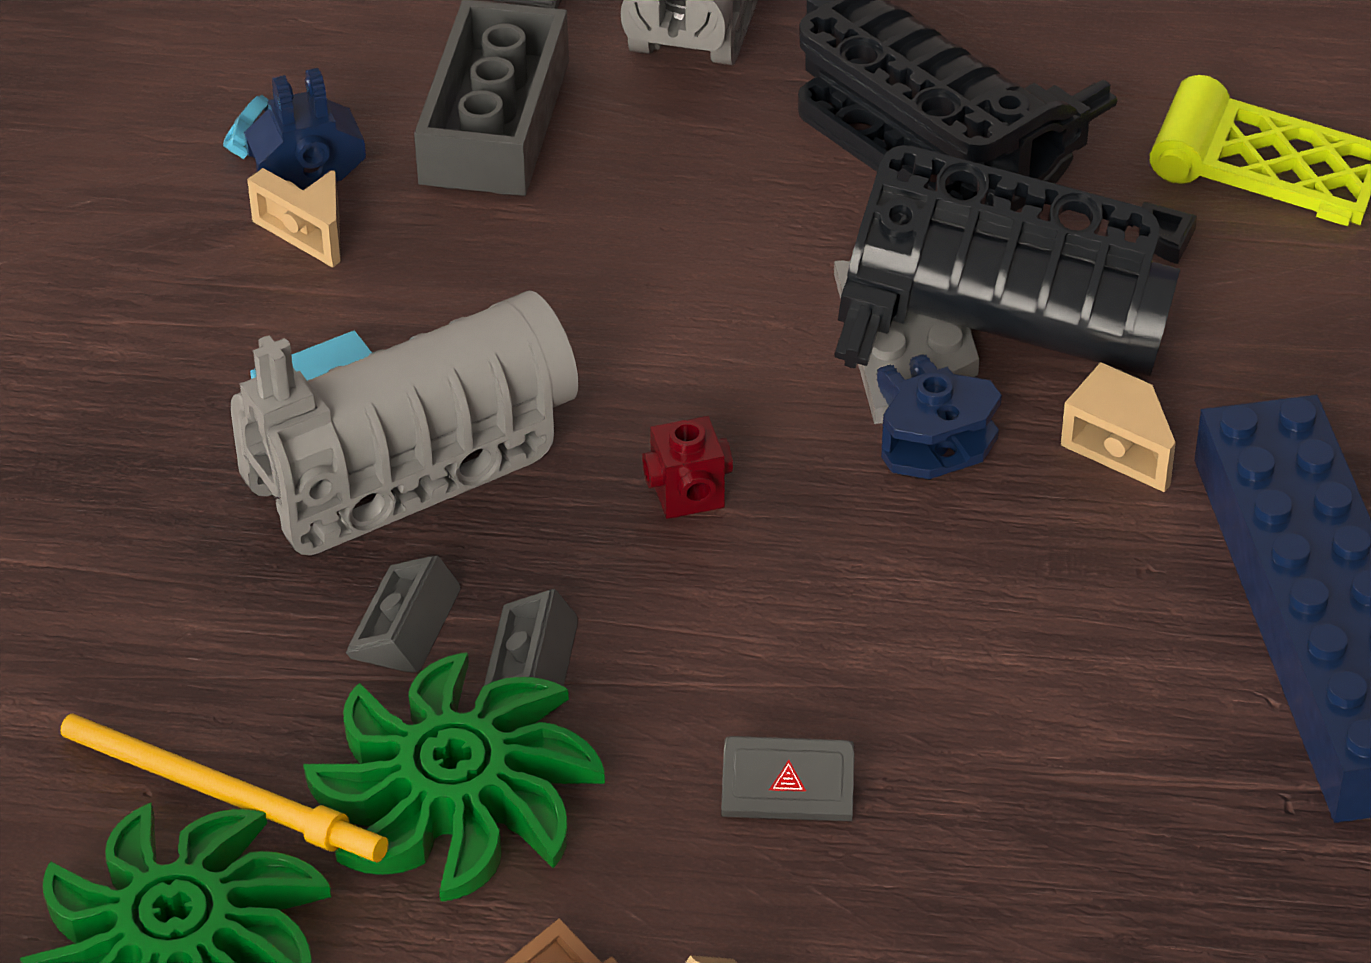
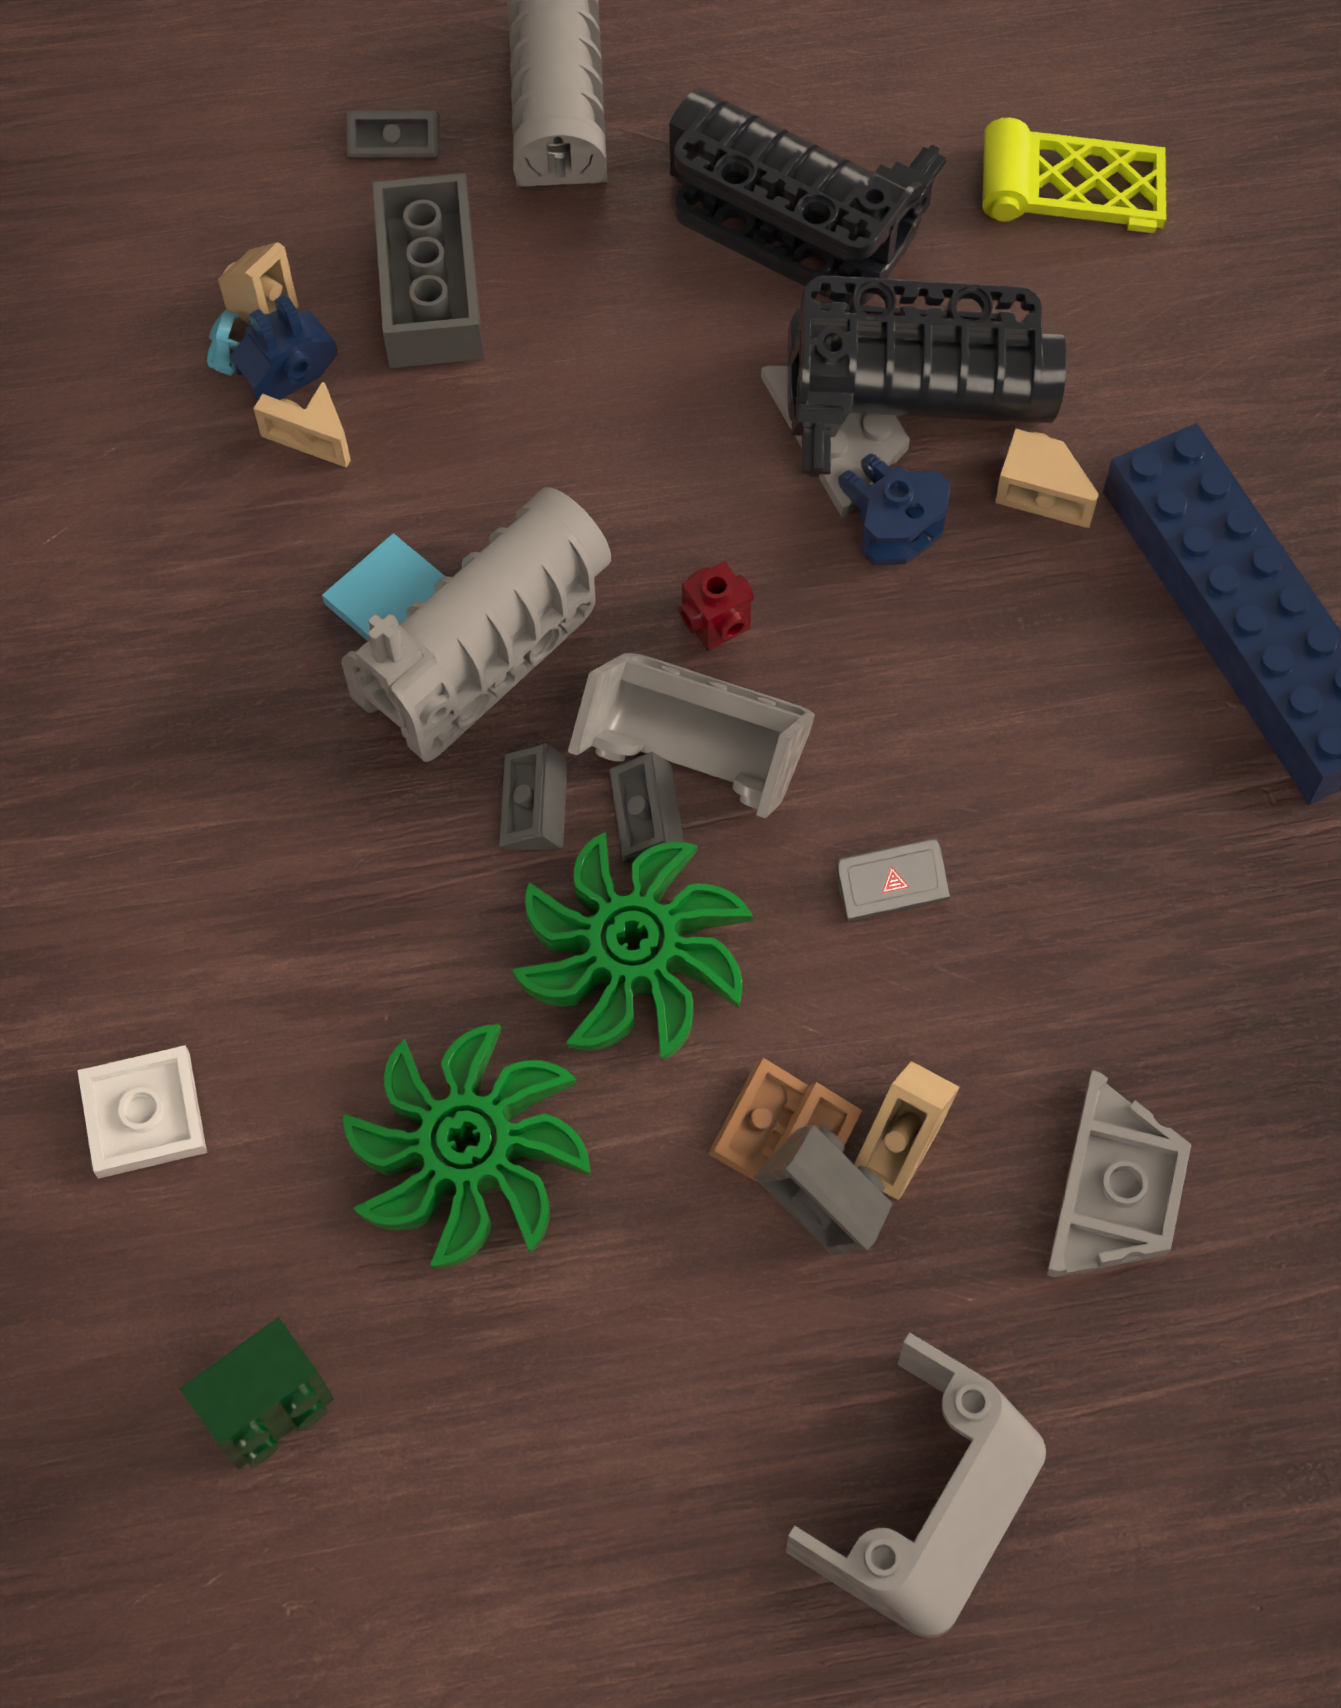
camera: 15 degrees left, 20 degrees up
(307, 52) = (257, 281): none -> tan slope
(320, 825) = (551, 1026): yellow bar -> none
(602, 570) = (693, 722): none -> light grey windscreen
(1174, 231) = (1012, 268): black tile -> none

